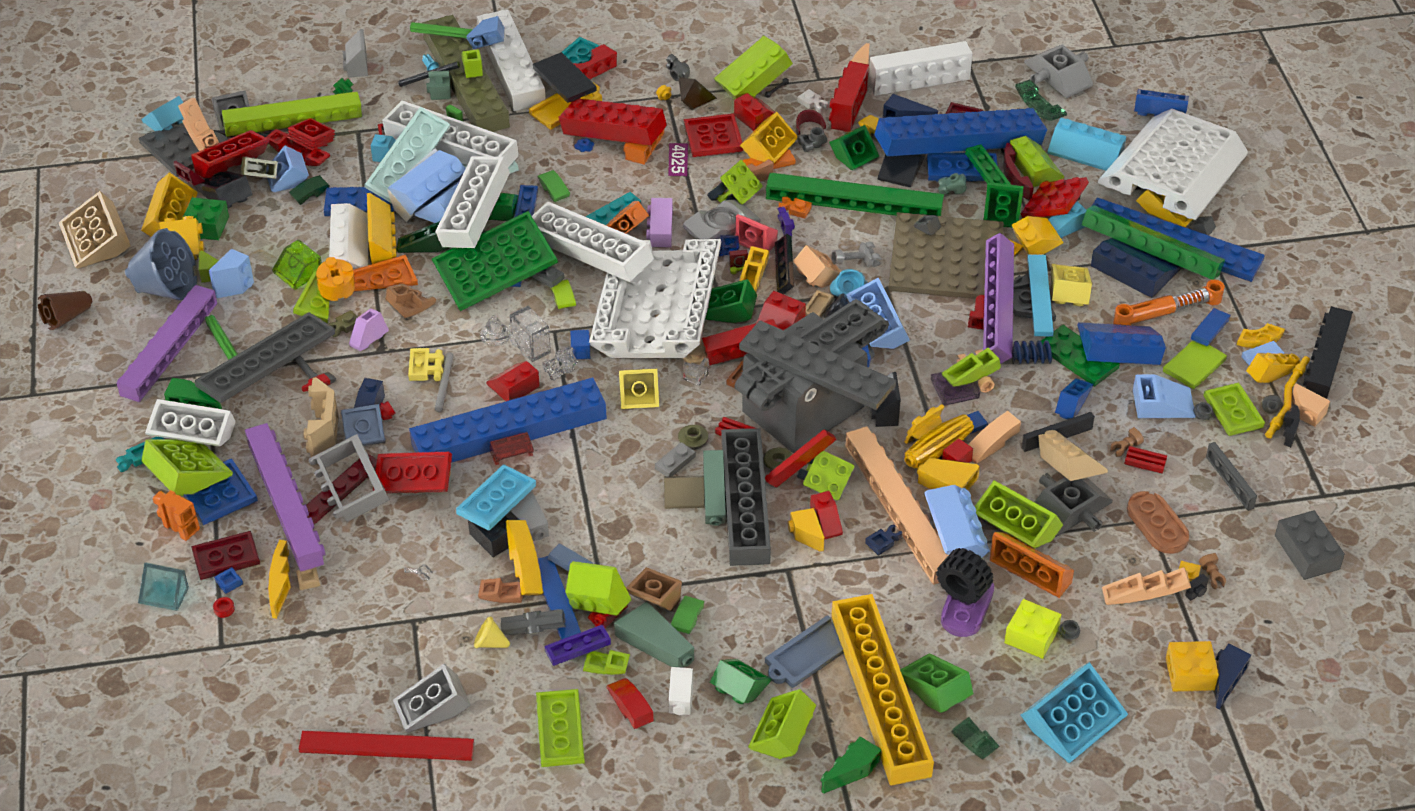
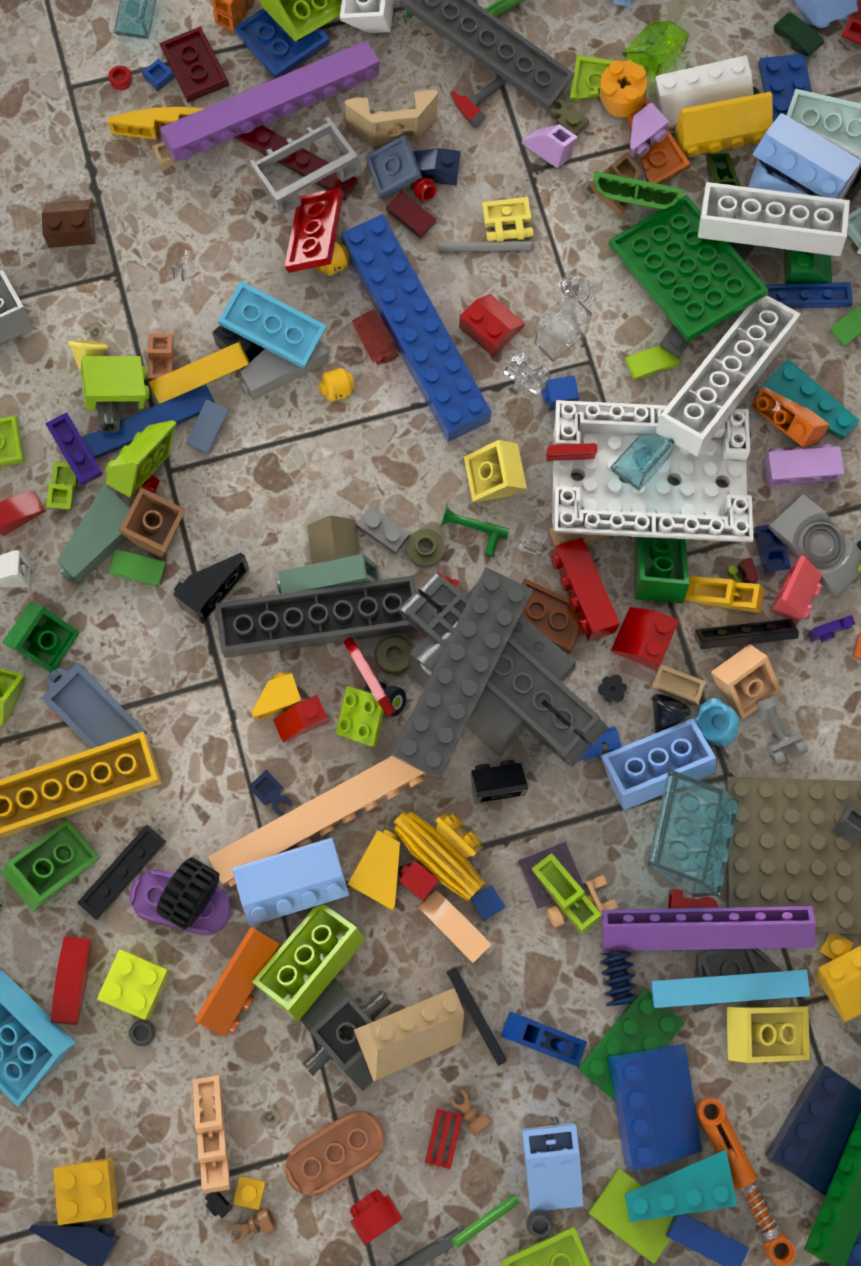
camera: 80 degrees right, 30 degrees up
(359, 645) = (68, 223): none -> reddish brown slope
(373, 271) = (647, 128): none -> lavender slope
(400, 426) = (411, 214): none -> dark red tile
(425, 281) = (636, 191): none -> bright green brick
(522, 613) = (113, 380): none -> lime panel
(548, 476) = (336, 384): none -> yellow head
(634, 333) = (571, 452): none -> red tile
(647, 294) = (643, 460): none -> clear light blue slope
(670, 418) = (494, 530): none -> green piece
(716, 558) = (210, 586): none -> black slope
(934, 290) = (693, 834): none -> clear light blue slope
(941, 639) = (121, 872): none -> black tile
(1028, 668) = (71, 980): none -> red slope
(1178, 327) = (689, 1190): none -> teal wing
(1203, 434) = (485, 1221): none -> bright green bar
(1203, 494) = (374, 1216): none -> red piece

